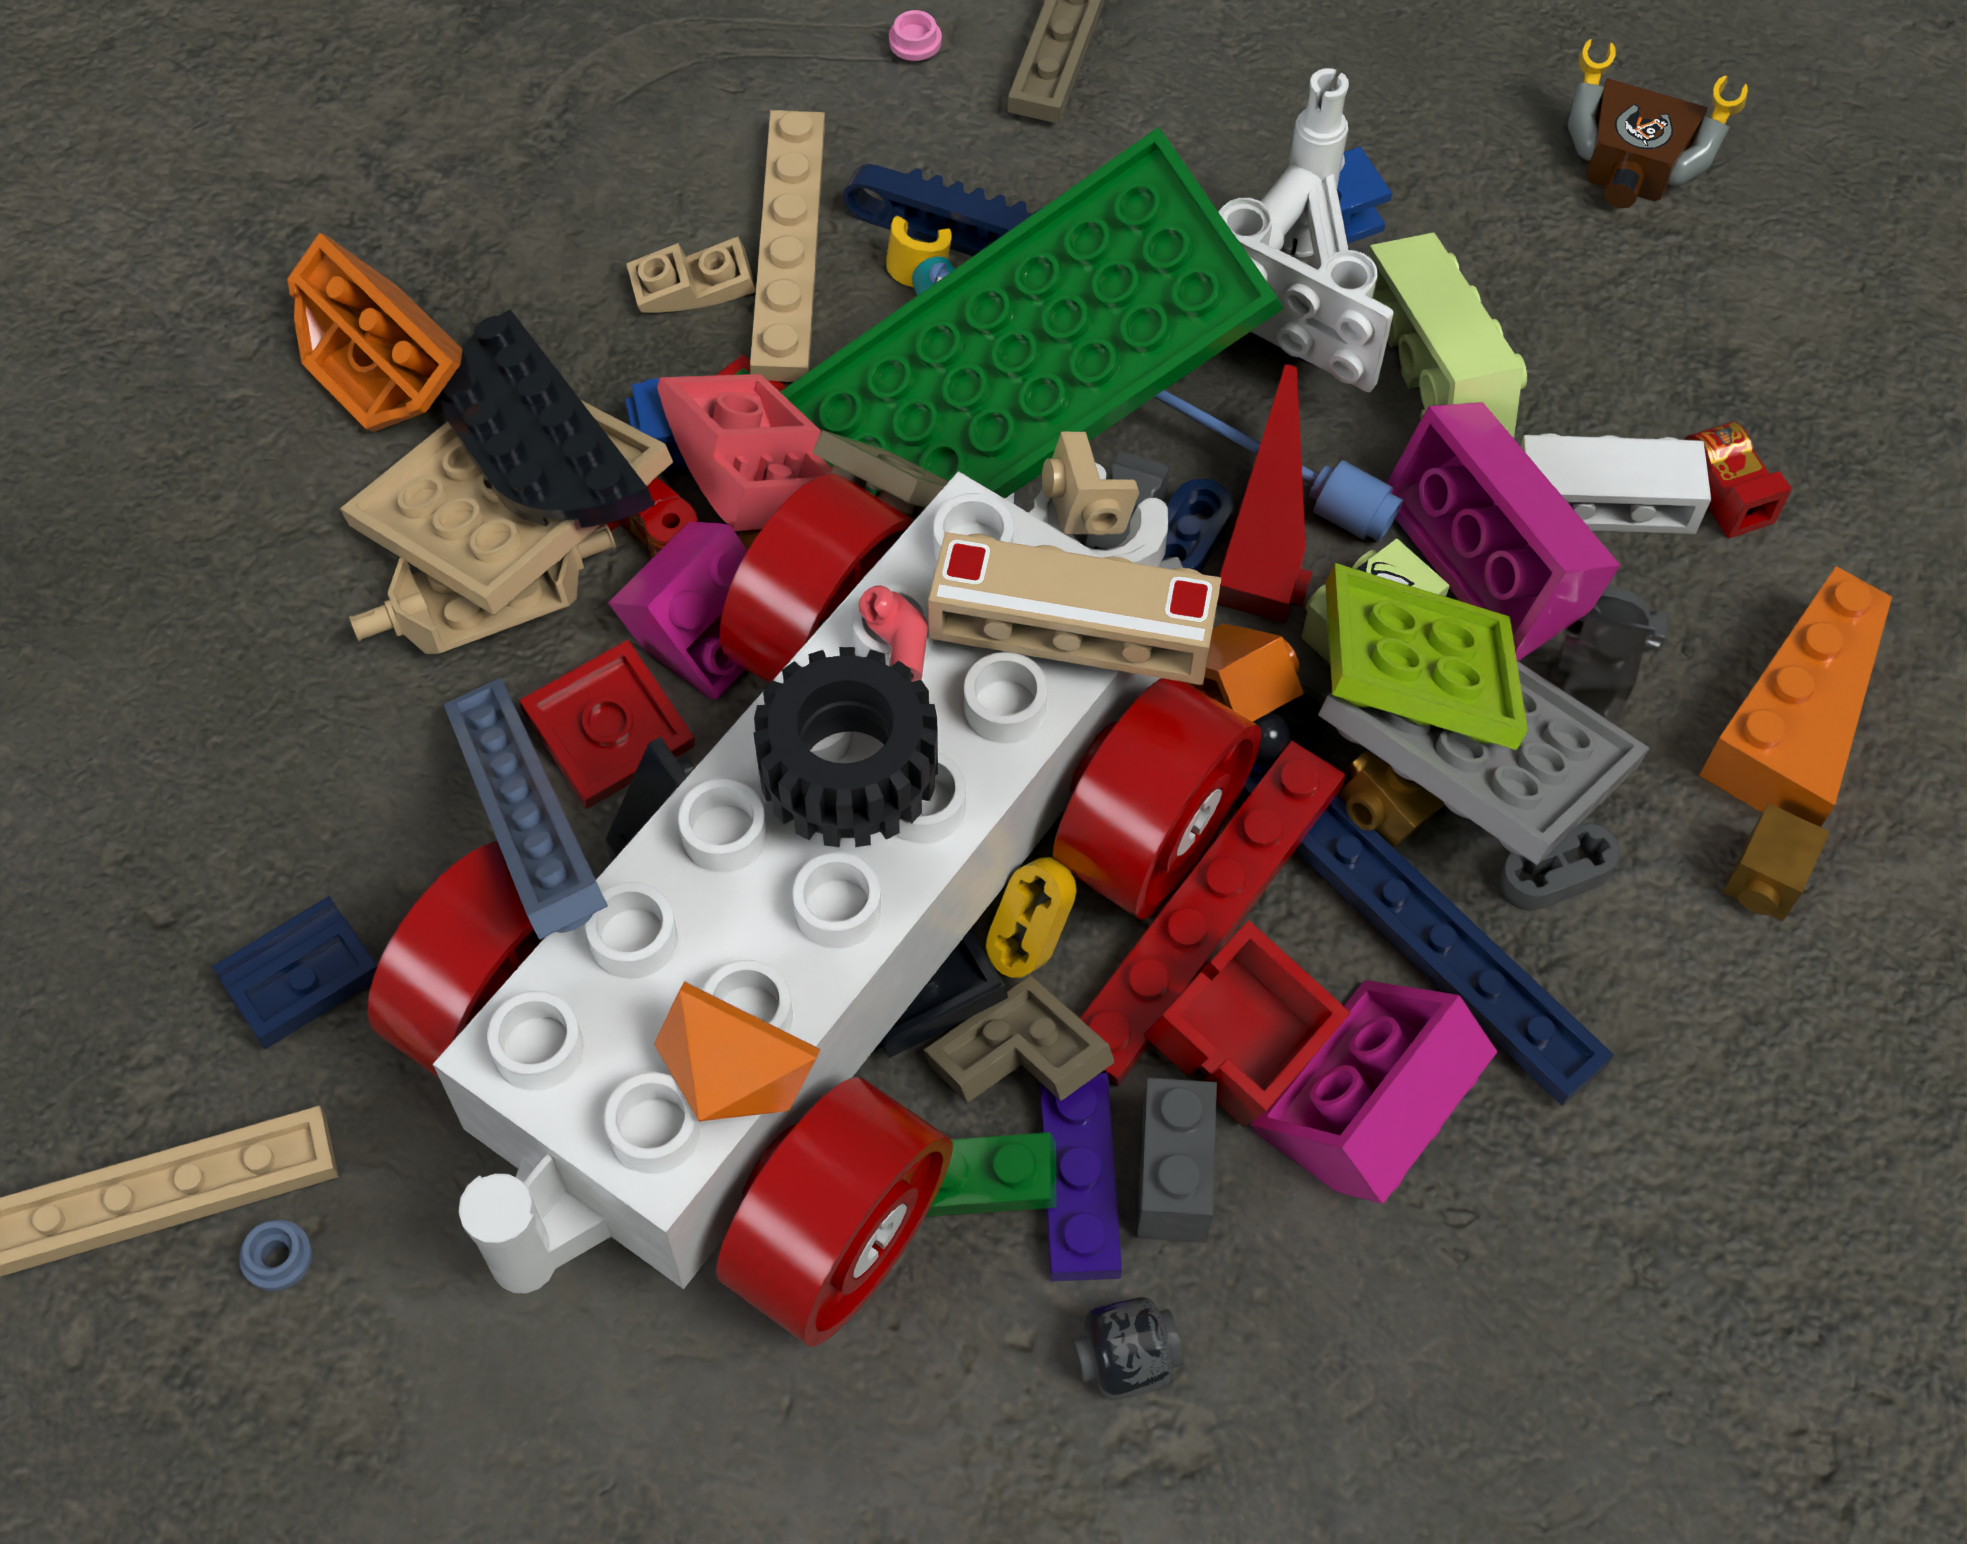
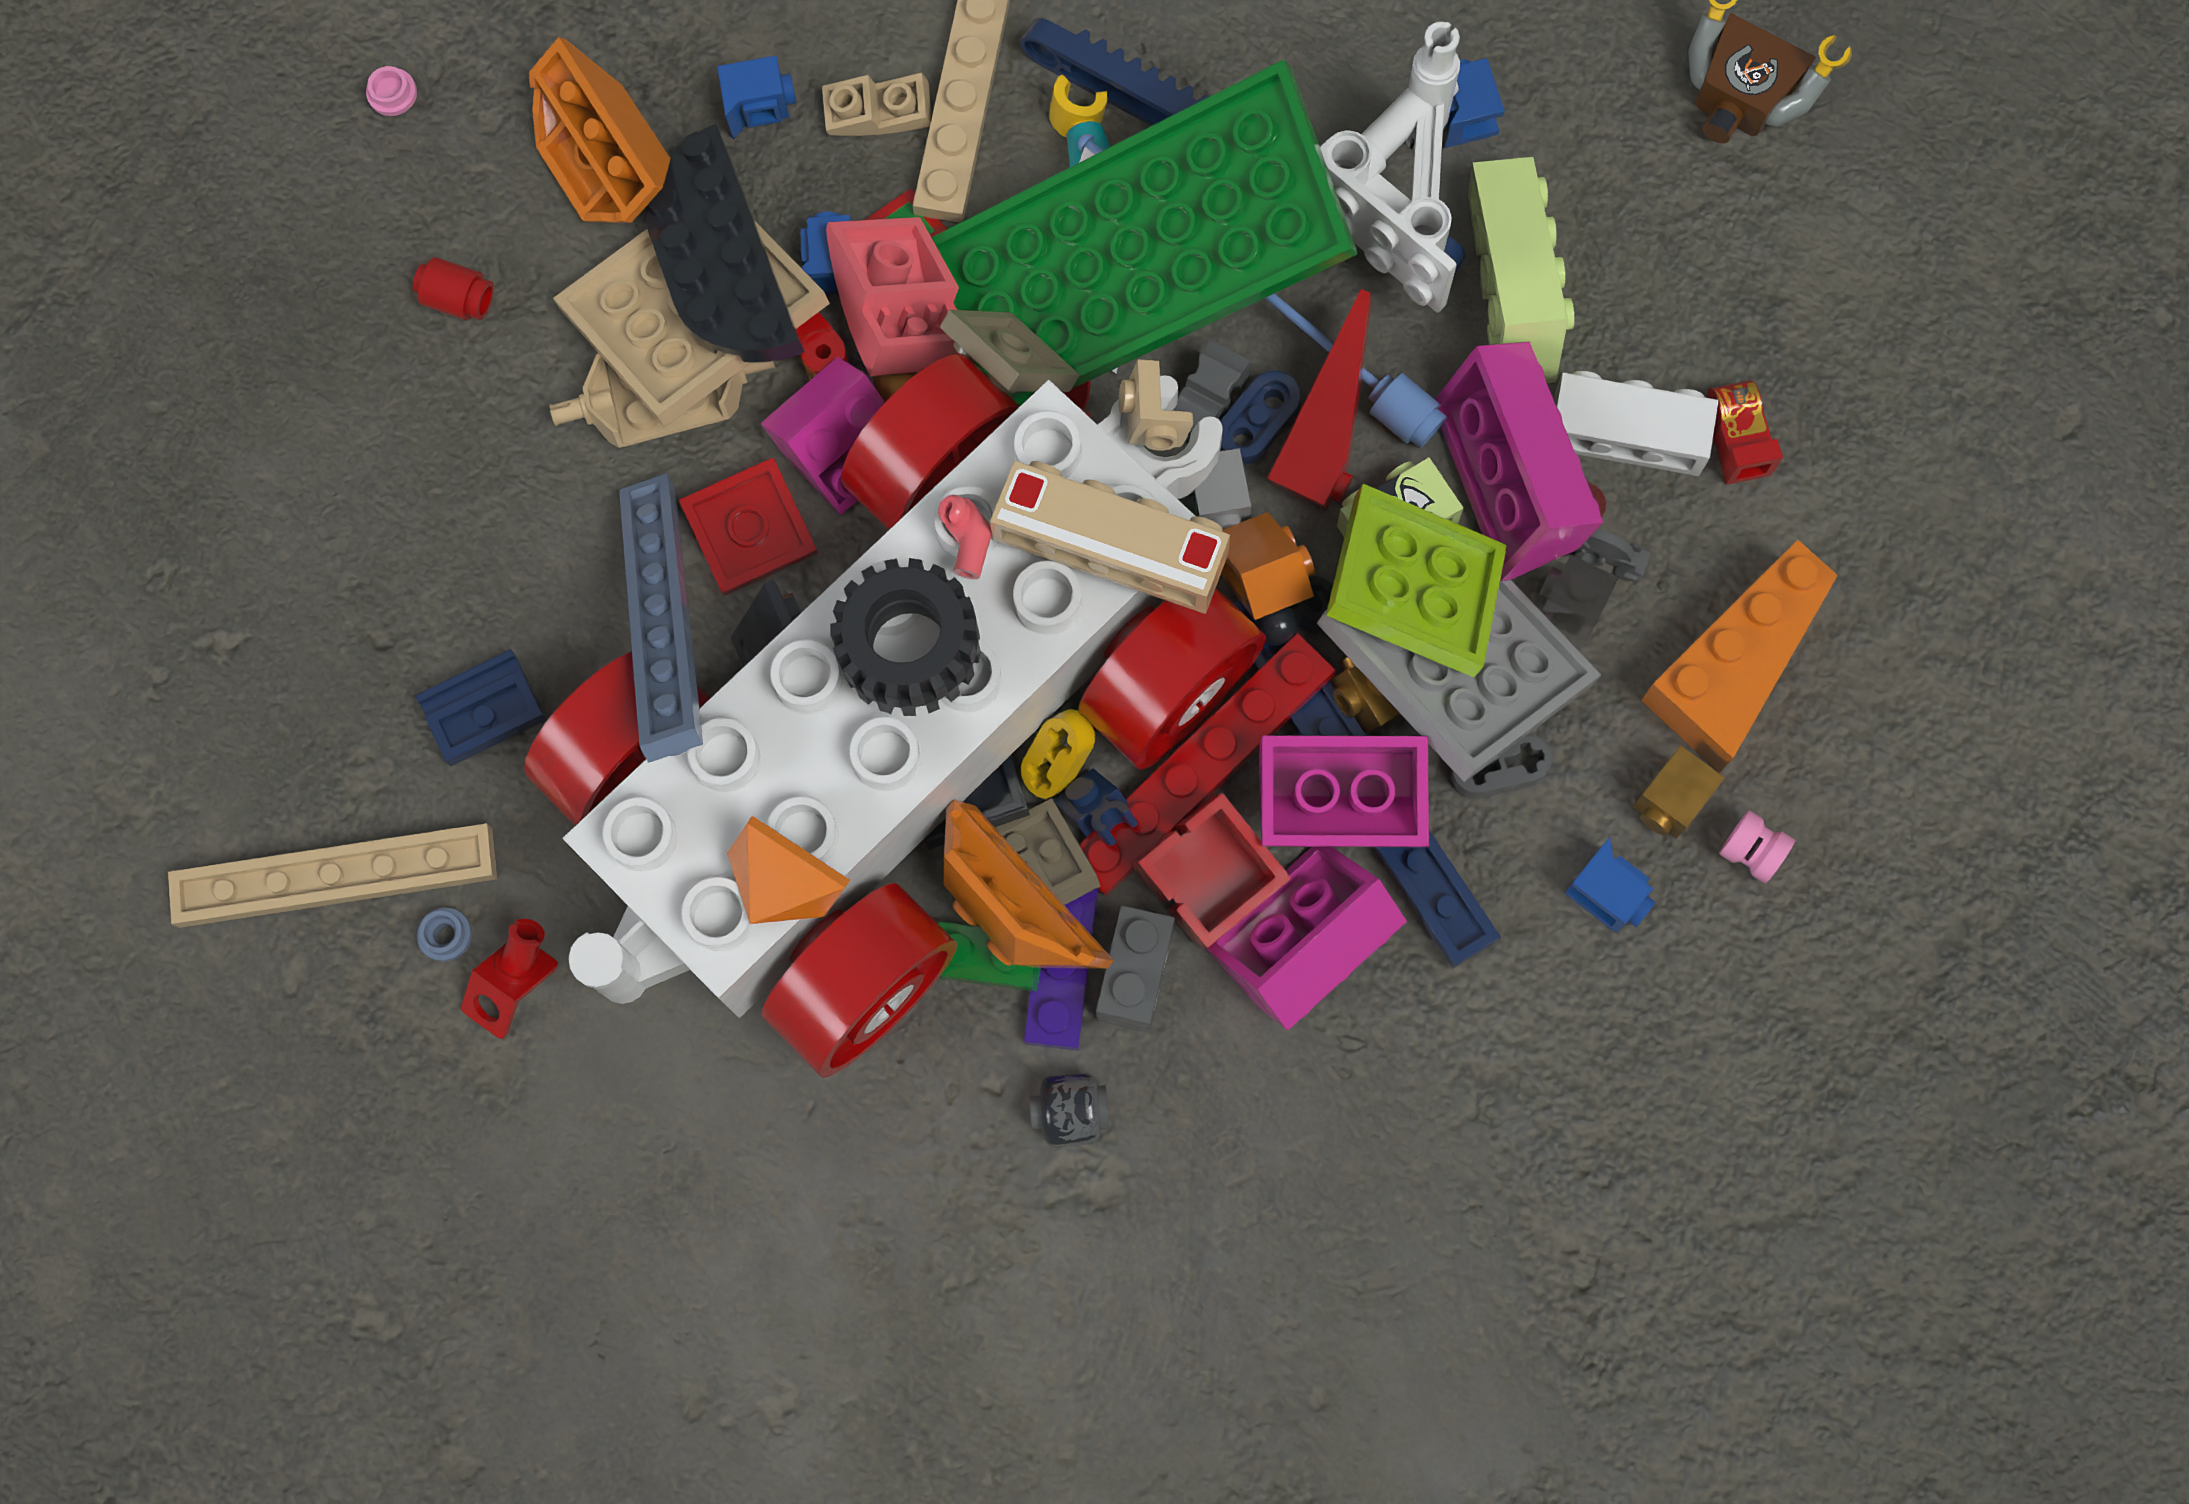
camera: 15 degrees right, 15 degrees up
(124, 324) = (391, 91): none -> bright pink plate
(217, 514) = (453, 289): none -> red brick
(367, 1292) = (508, 976): none -> red bracket
(552, 276) = (755, 93): none -> blue window
(1014, 1089) = (1010, 899): none -> orange wedge
(1088, 970) = (1095, 805): none -> dark blue plate
(1391, 897) = (1344, 791): none -> dark pink slope
(1729, 983) = (1612, 890): none -> blue window
(1898, 914) = (1768, 852): none -> bright pink wheel

